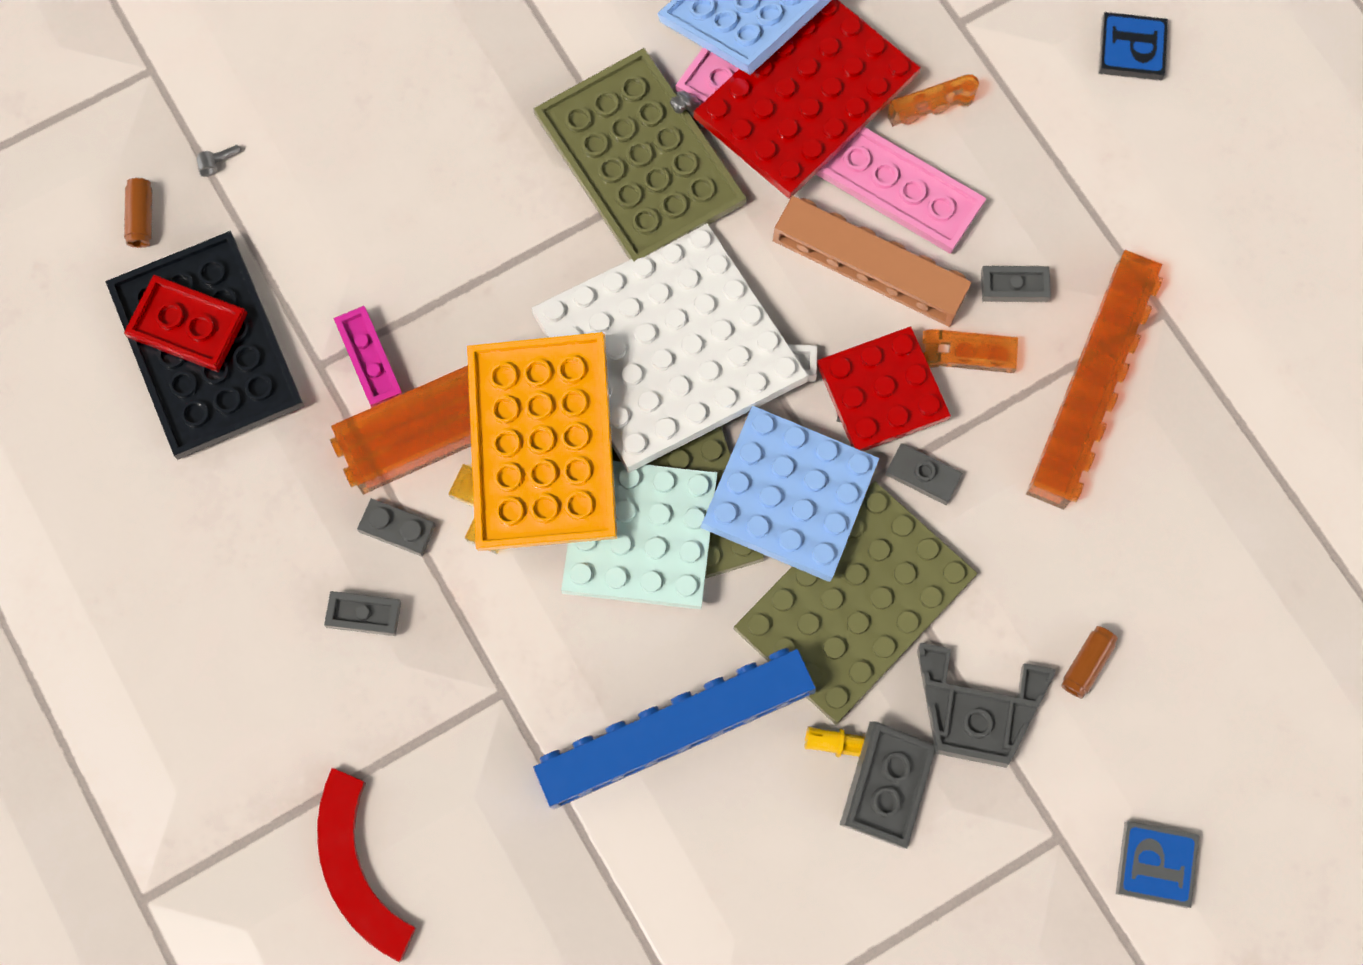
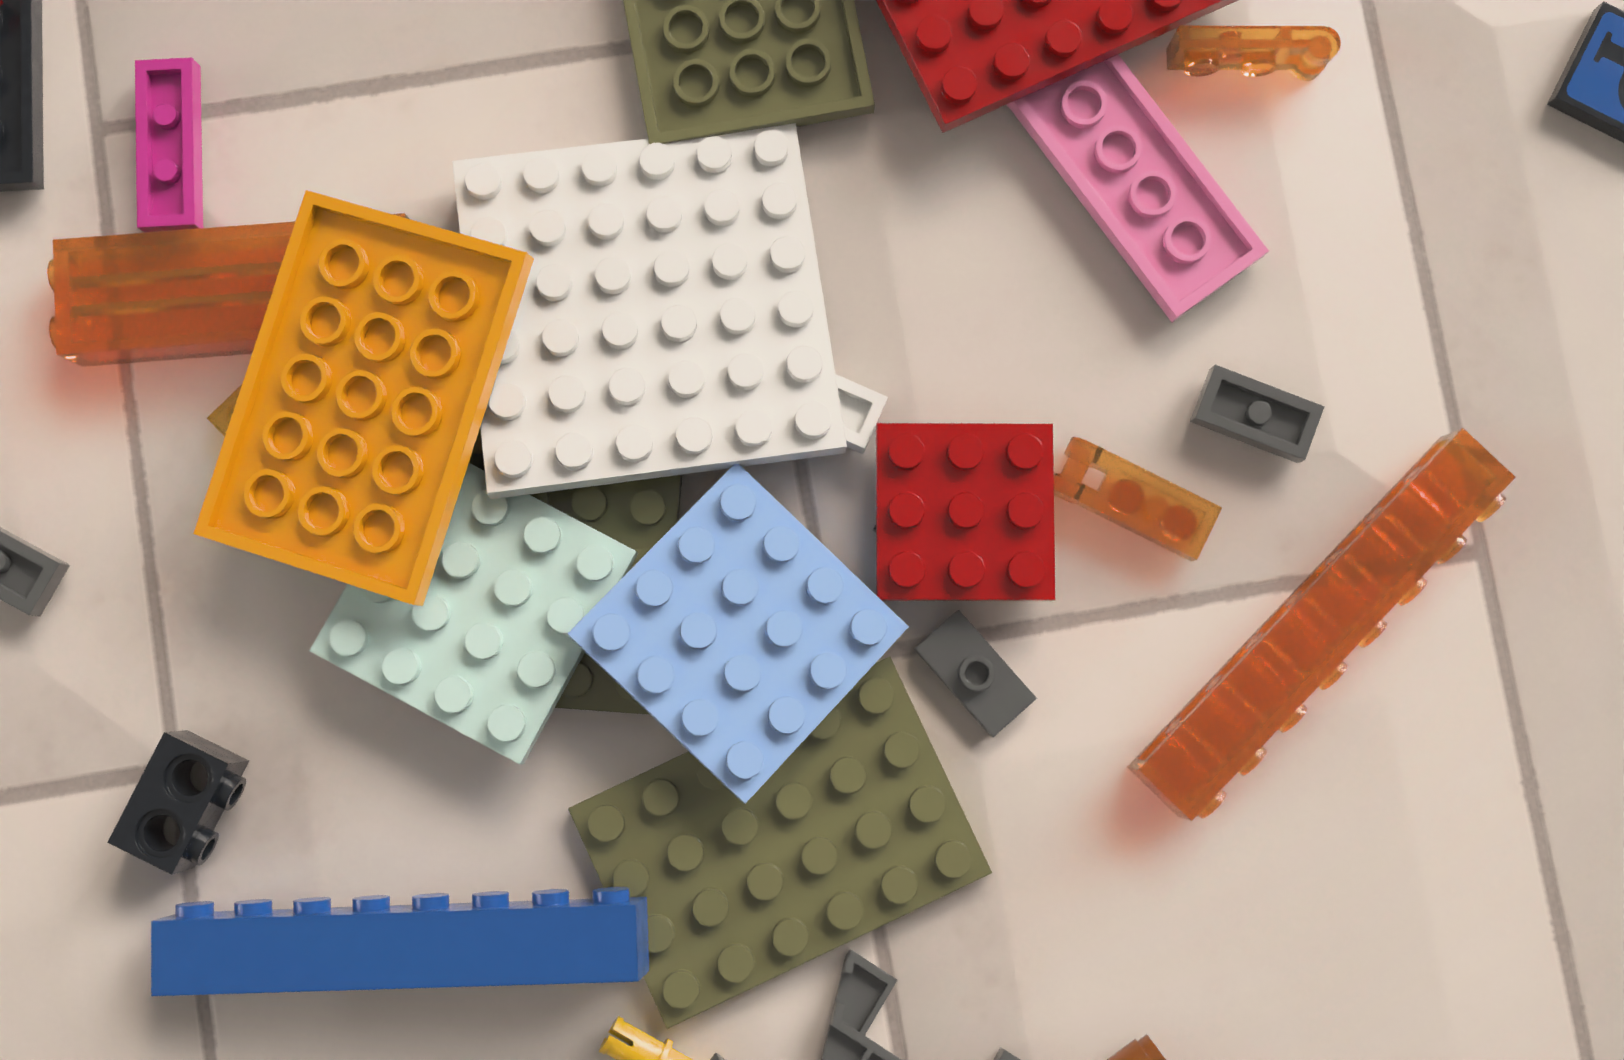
camera: 20 degrees right, 10 degrees up
(396, 527) = (109, 440): dark grey plate -> none
(509, 702) = (168, 791): none -> black brick
(871, 260) = (1036, 285): nougat brick -> none

